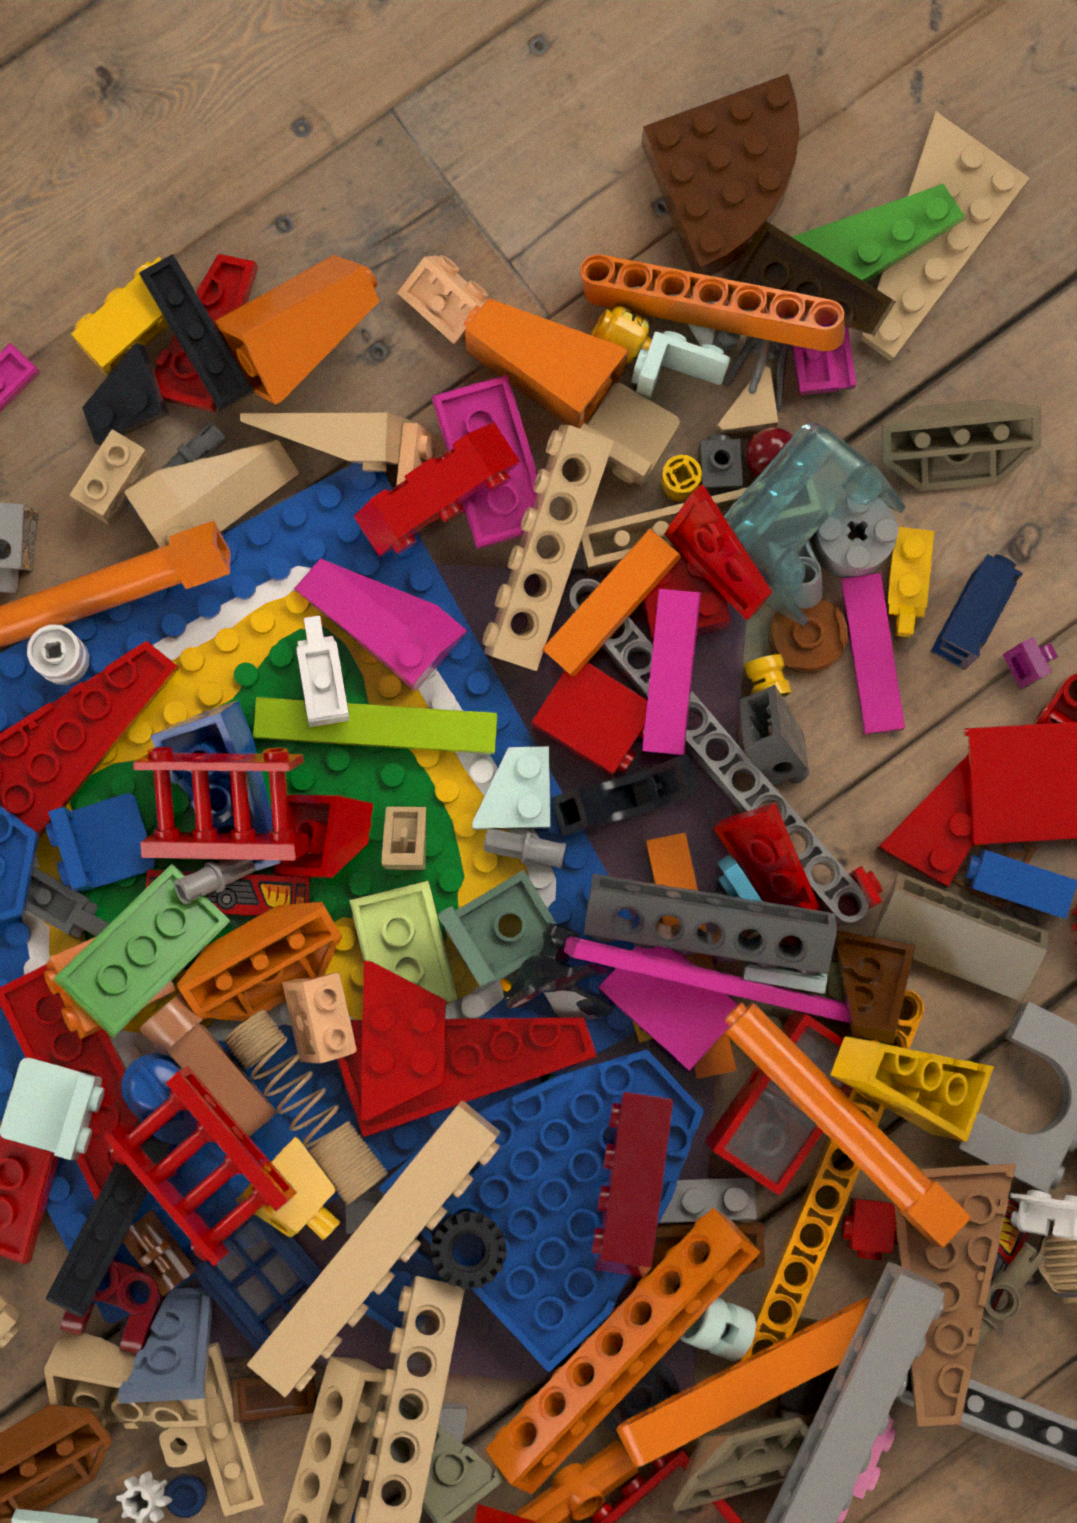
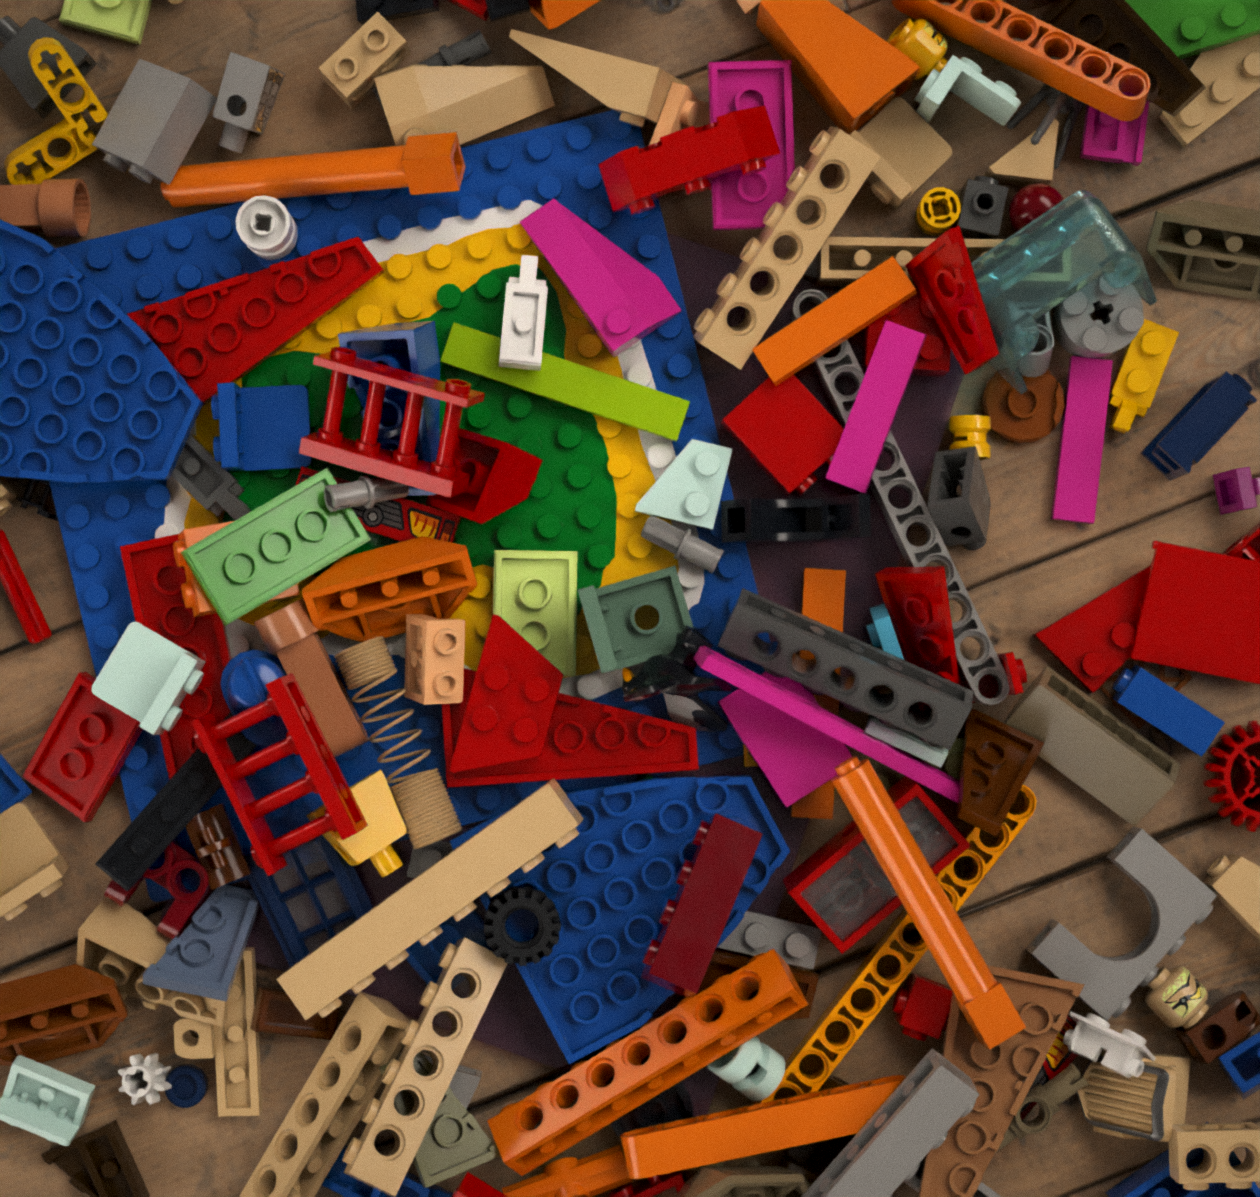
camera: 15 degrees right, 5 degrees up
(404, 838) = (565, 502): tan slope -> none
(721, 339) = (1014, 78): arm -> none
(919, 1086) = (1010, 884): yellow wedge -> none

